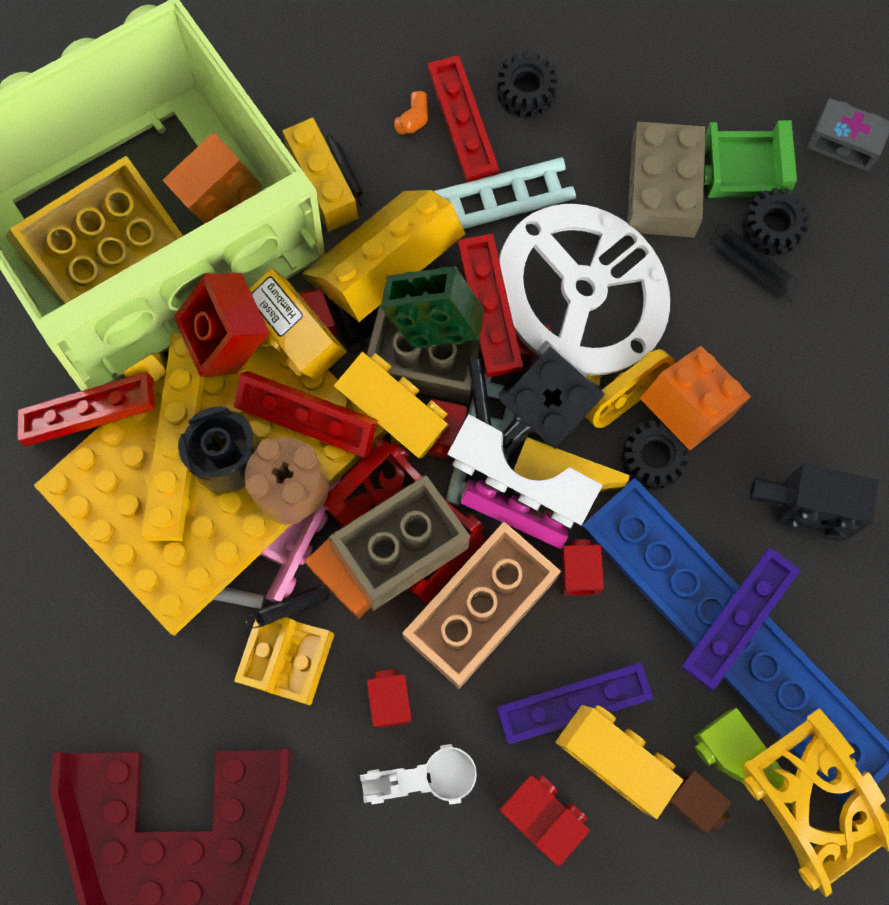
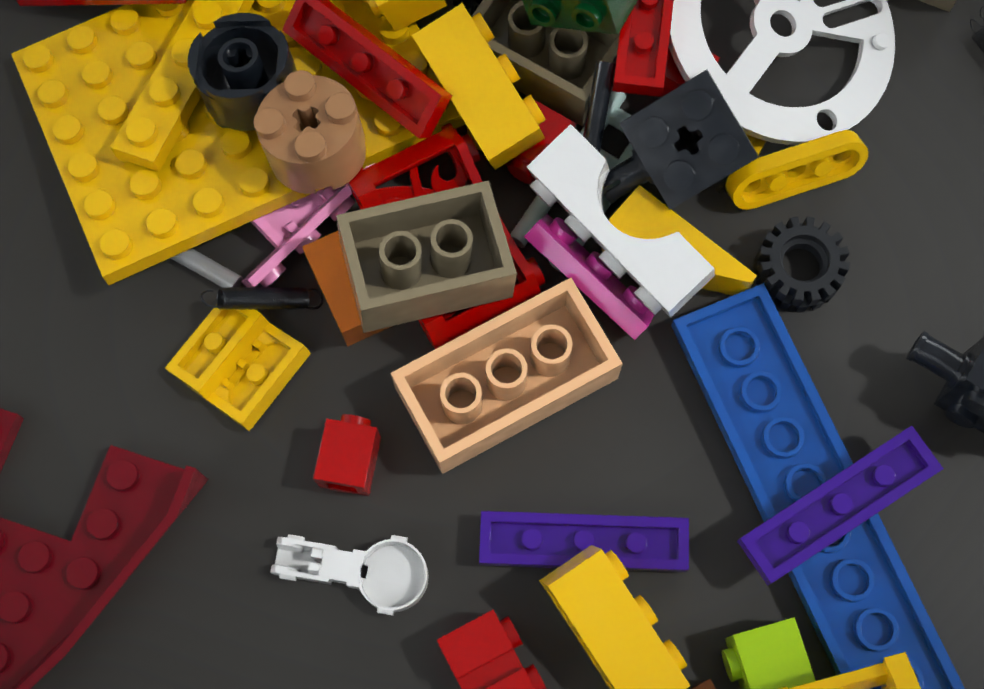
camera: 20 degrees right, 0 degrees up
(581, 568) = (653, 375): red brick -> none
(695, 397) = (878, 204): orange brick -> none

